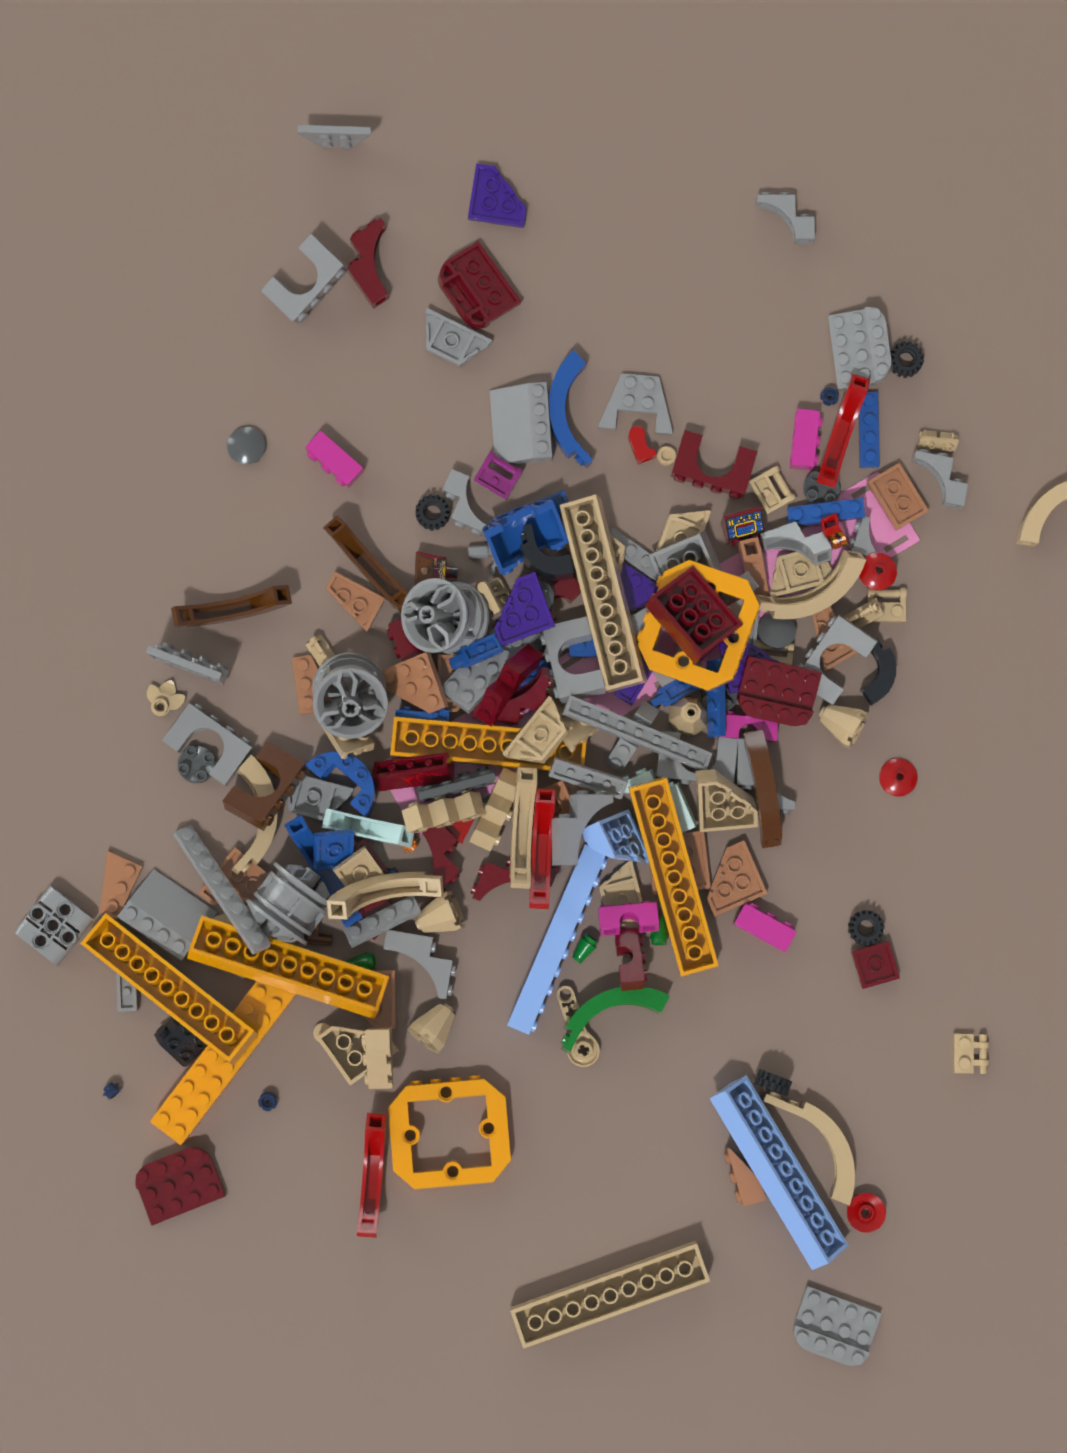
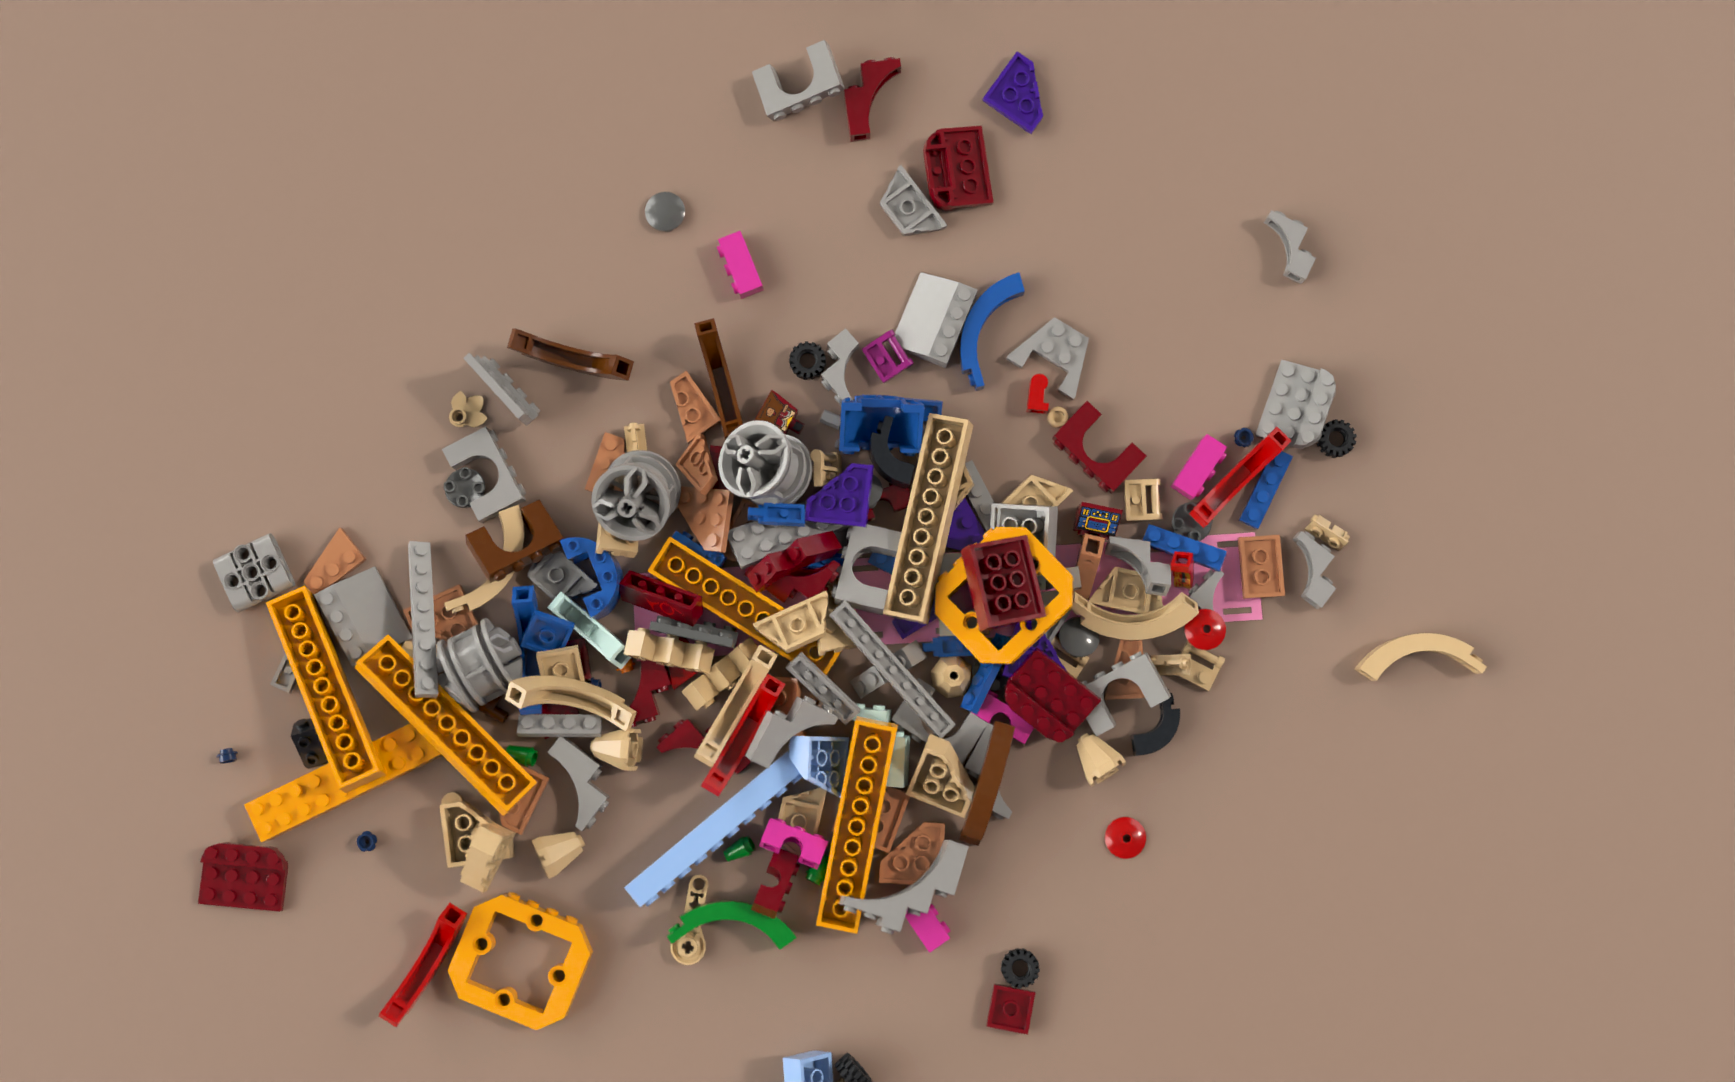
camera: 35 degrees right, 0 degrees up
(386, 645) = (698, 465): none -> nougat wing
(763, 887) = (941, 877): none -> light grey arch

